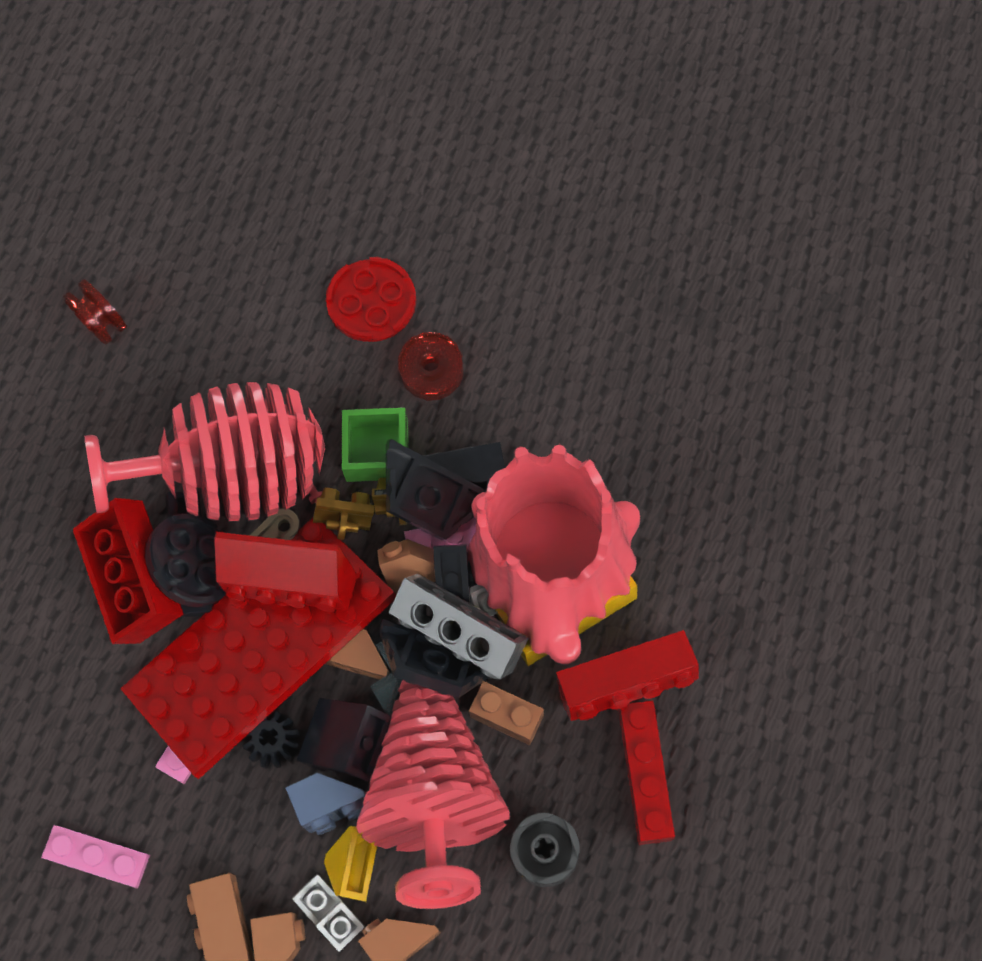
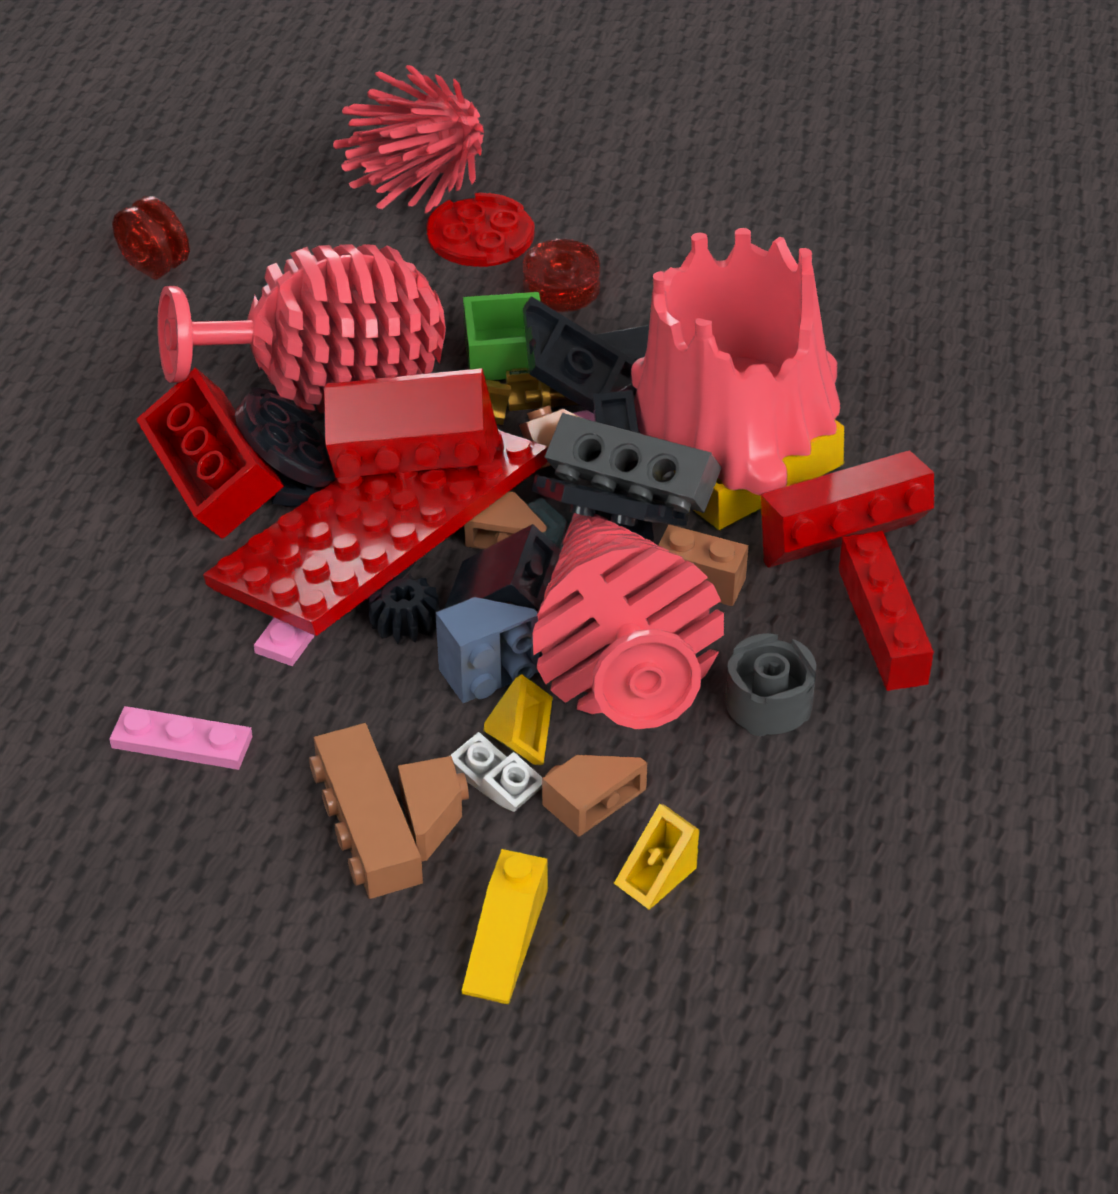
camera: 10 degrees left, 25 degrees down
(333, 207) = (422, 136): none -> coral plant

